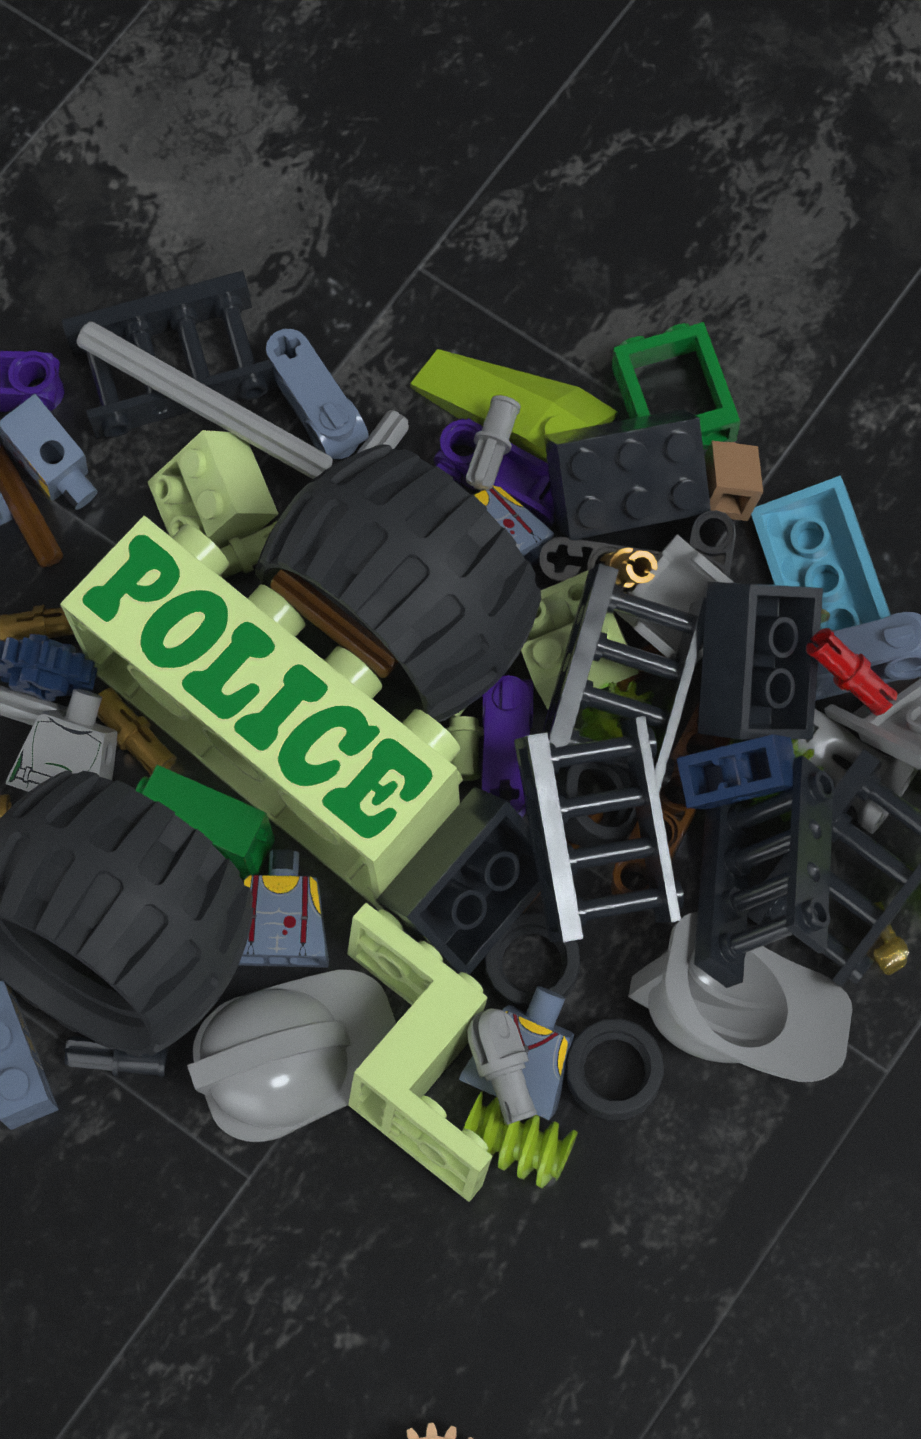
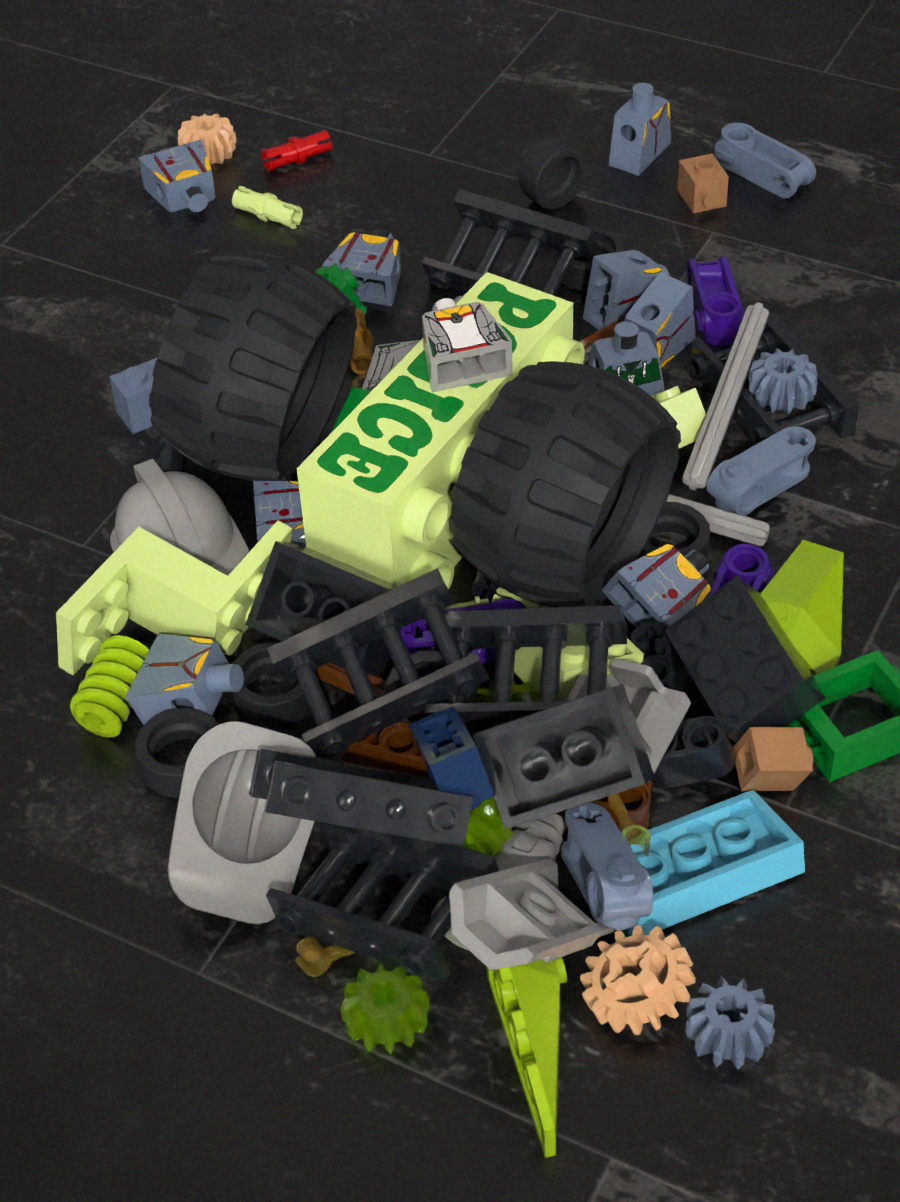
camera: 80 degrees right, 25 degrees down
(118, 498) = (630, 357): none -> sand blue torso
(209, 326) = (783, 380): none -> sand blue gear
(218, 647) = (464, 345): none -> light grey torso
(492, 442) = (749, 568): light grey axle -> none
(501, 1058) = (165, 637): light grey arm -> none
(632, 566) = (635, 647): pearl gold pin -> none
(851, 671) = (570, 832): red pin -> none

